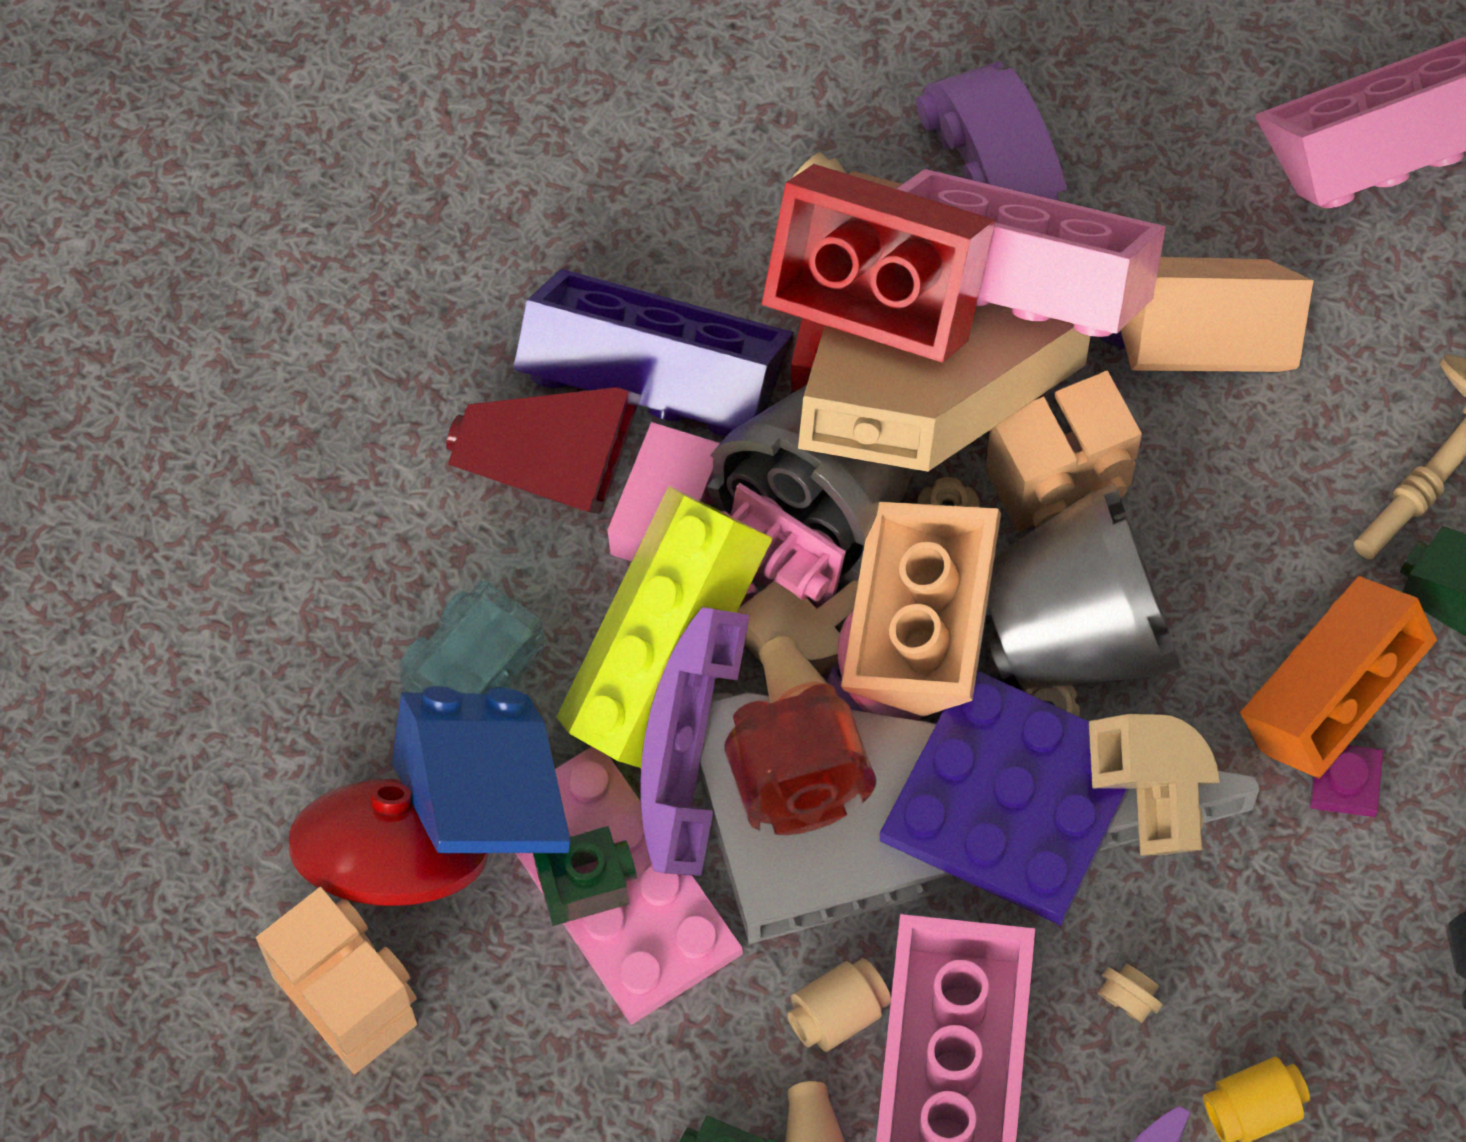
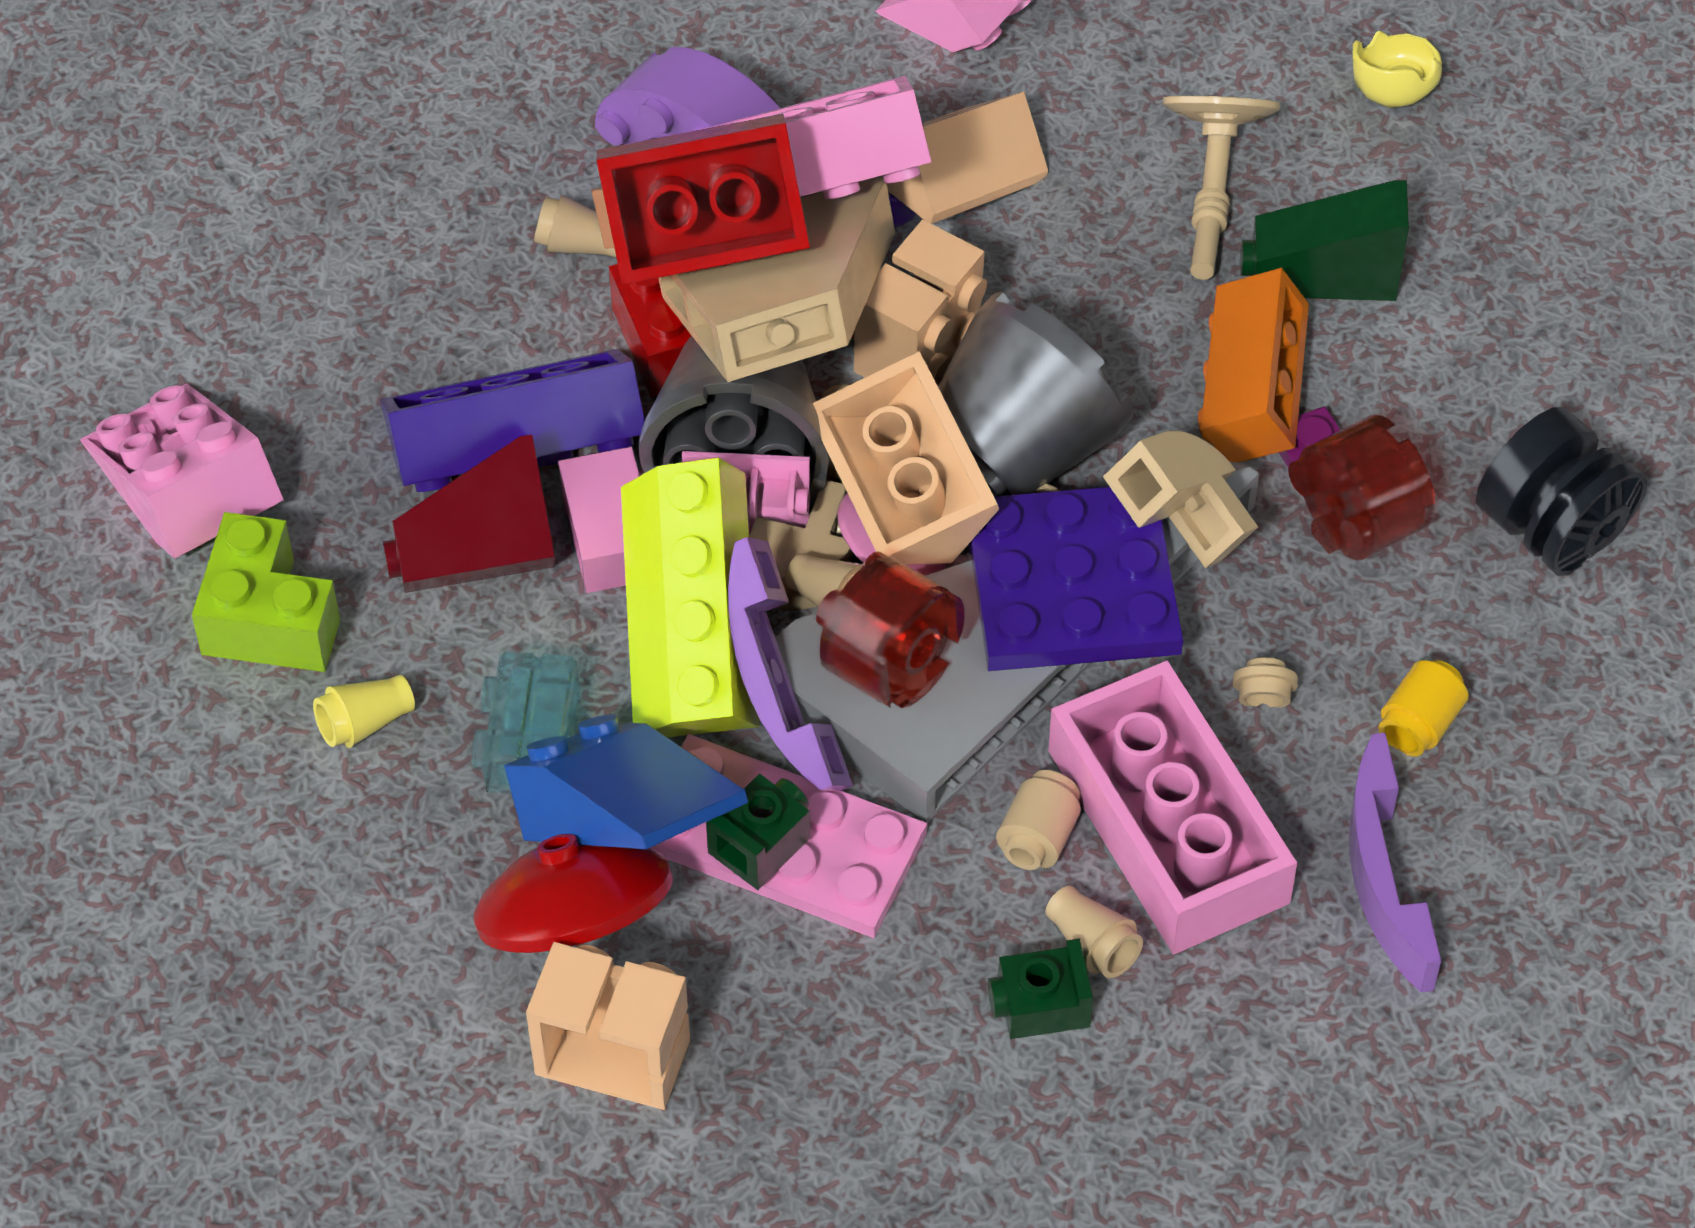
camera: 35 degrees left, 10 degrees down
(319, 406) = (253, 604): none -> lime brick
(349, 559) = (359, 709): none -> light yellow cone
(350, 246) = (183, 467): none -> bright pink slope
(1346, 859) = (1363, 488): none -> clear red brick

